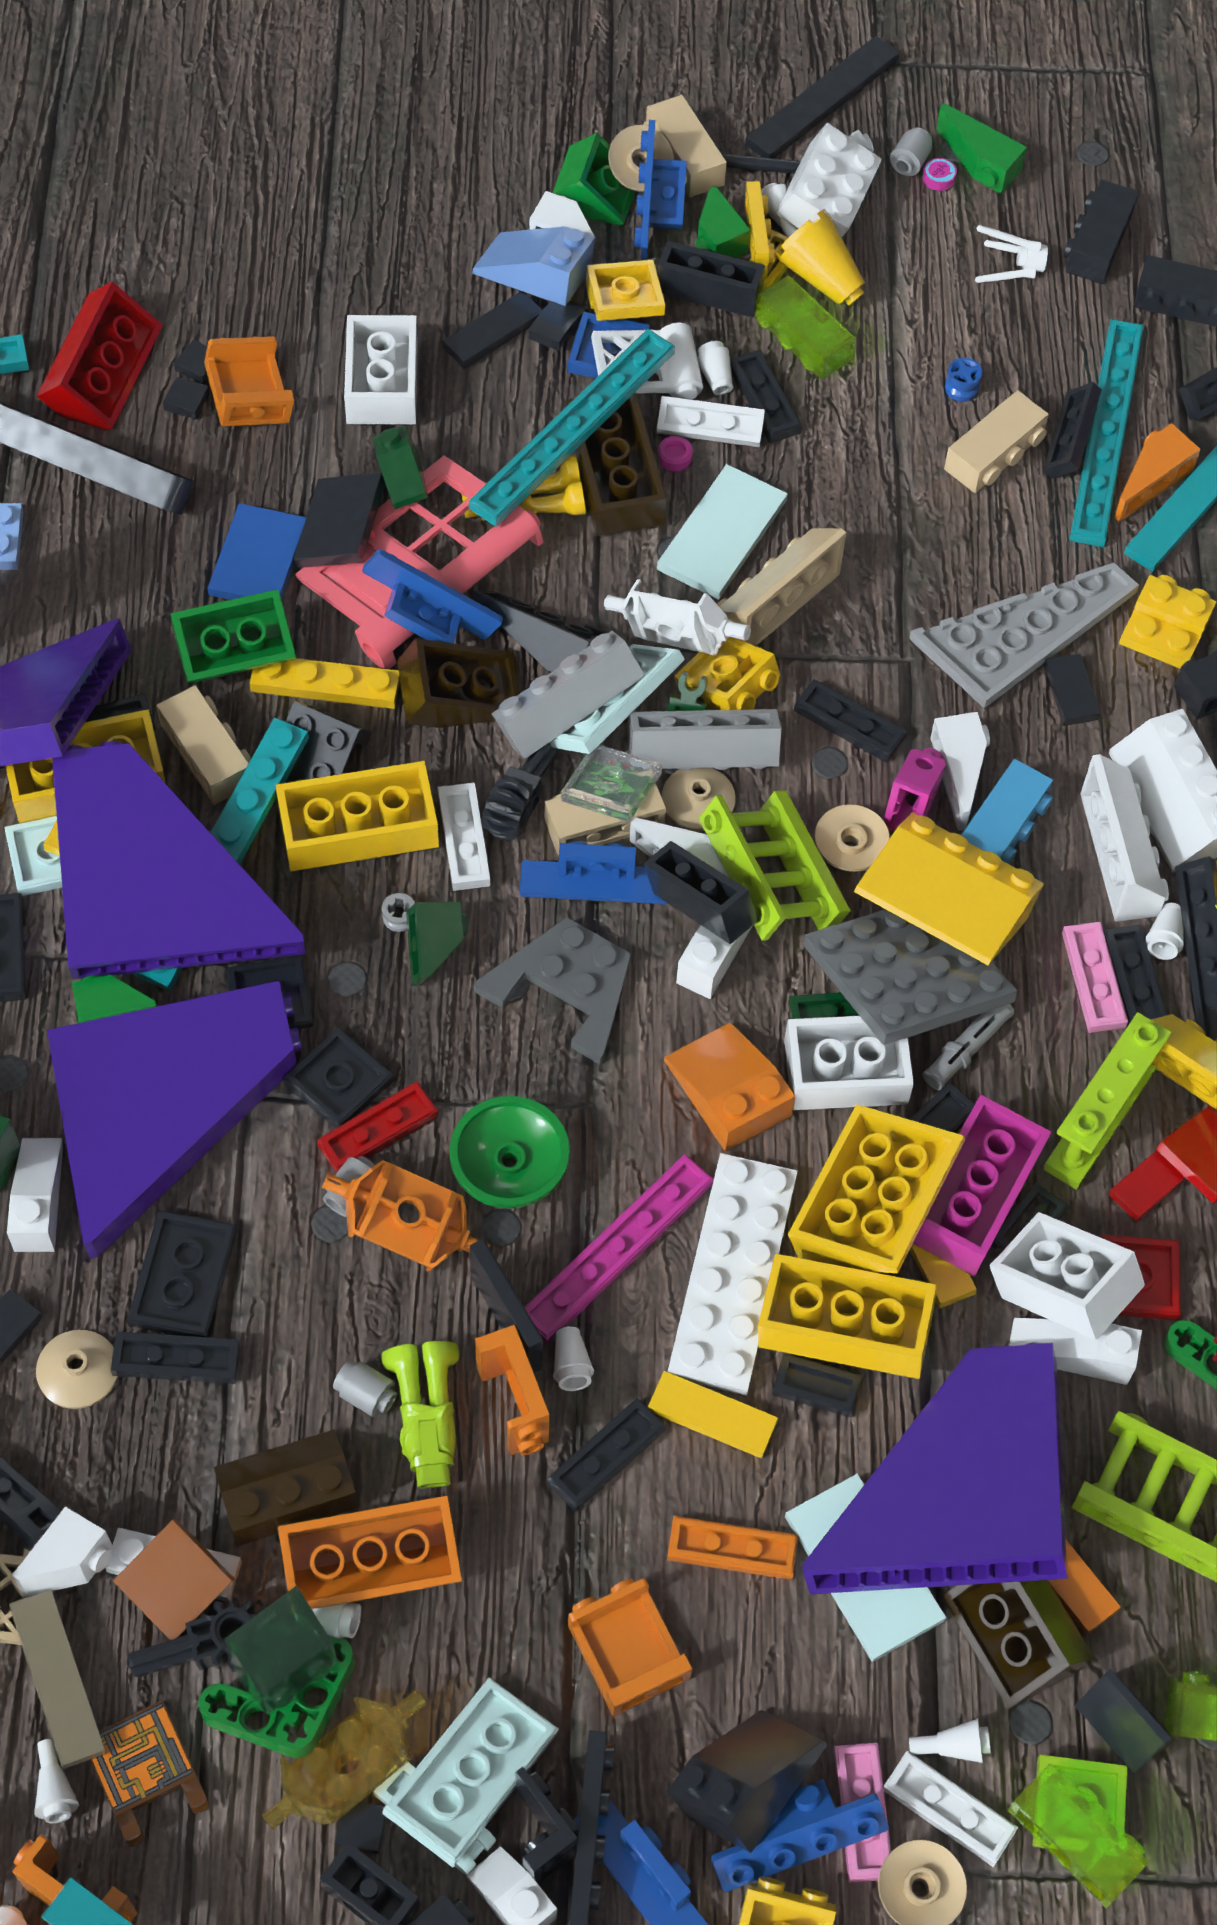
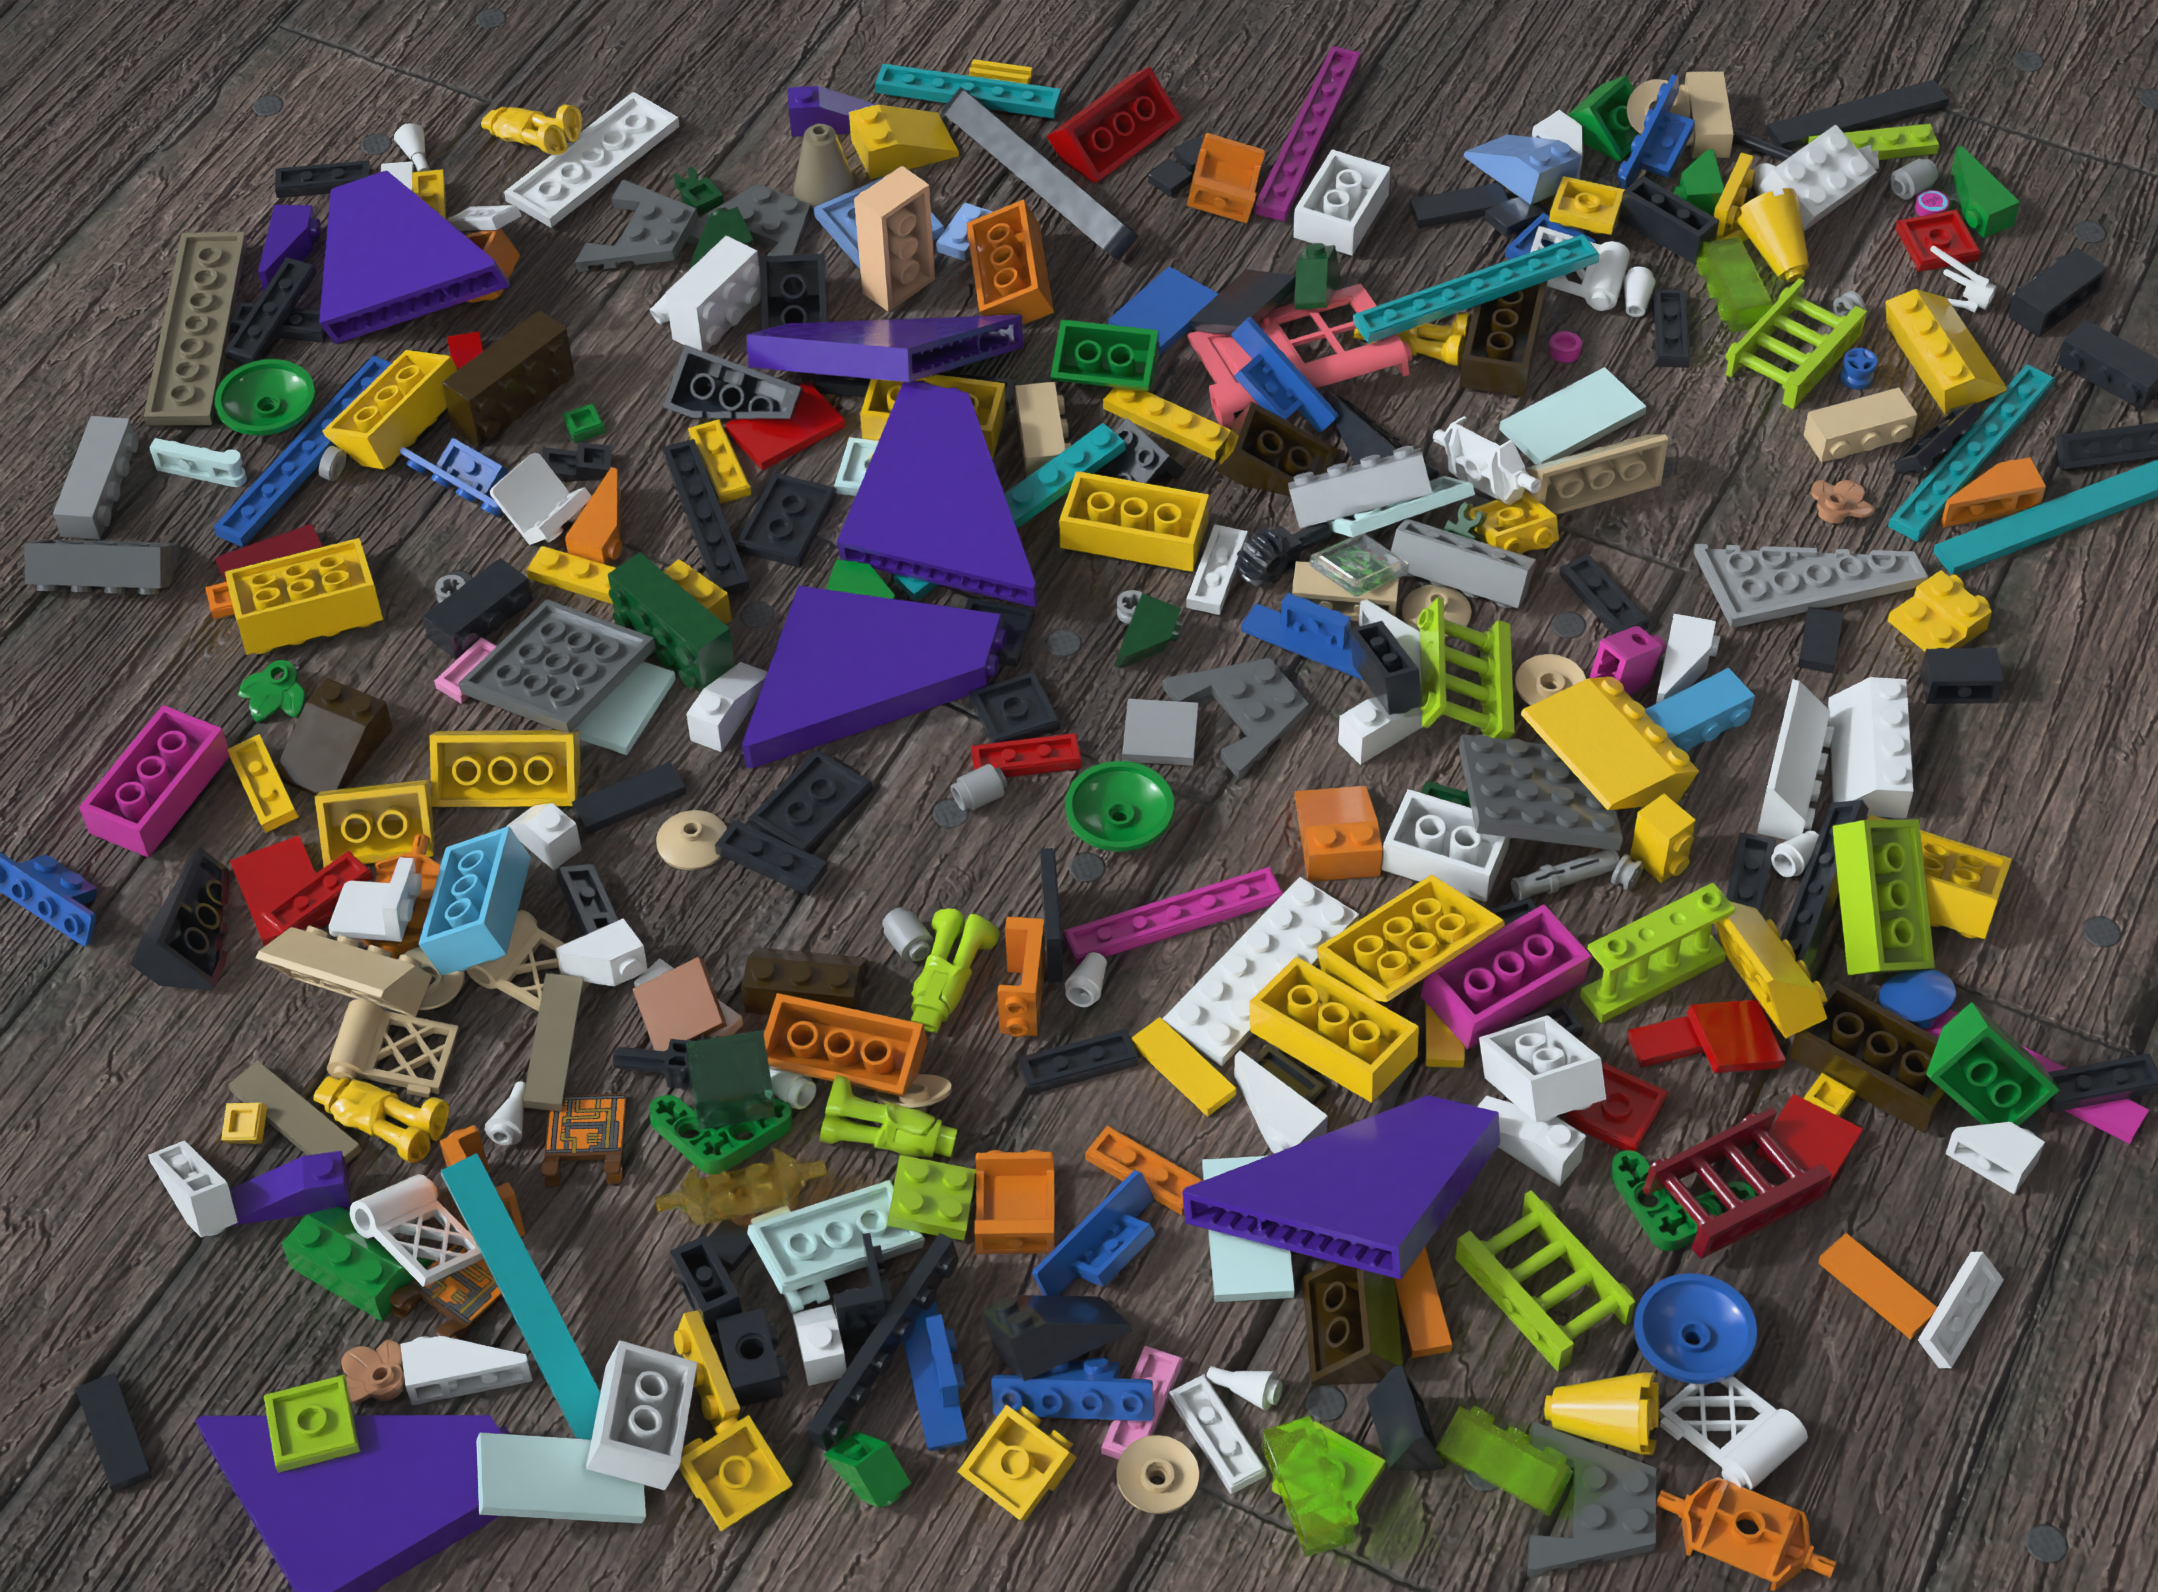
camera: 30 degrees right, 10 degrees down
(74, 562) = (1010, 264): none -> orange slope
(302, 300) = (1307, 133): none -> magenta plate
(374, 1215) = (1014, 844): orange plate -> none
(469, 1620) = (902, 1128): none -> lime piece
(480, 1565) = (922, 1093): none -> tan dish
(499, 1044) = (1160, 732): none -> light grey tile
(543, 1679) = (931, 1197): none -> lime plate
(710, 421) = (1608, 330): white plate -> none
(740, 1651) = (1101, 1241): none -> blue bracket
(836, 1428) = (1279, 1111): none -> white slope
(867, 117) = (1895, 141): none -> lime plate
(917, 390) = (1812, 365): none -> lime fence
(922, 315) = (1845, 303): none -> light grey bush
(961, 208) = (1941, 230): none -> red tile
(1016, 530) = (1840, 500): none -> nougat plate
(1025, 1018) = (1627, 872): none -> light grey bush
(1030, 333) = (1941, 349): none -> yellow slope
(1049, 971) = (1663, 838): none -> yellow brick
(1094, 977) = (1713, 855): bright pink tile -> none

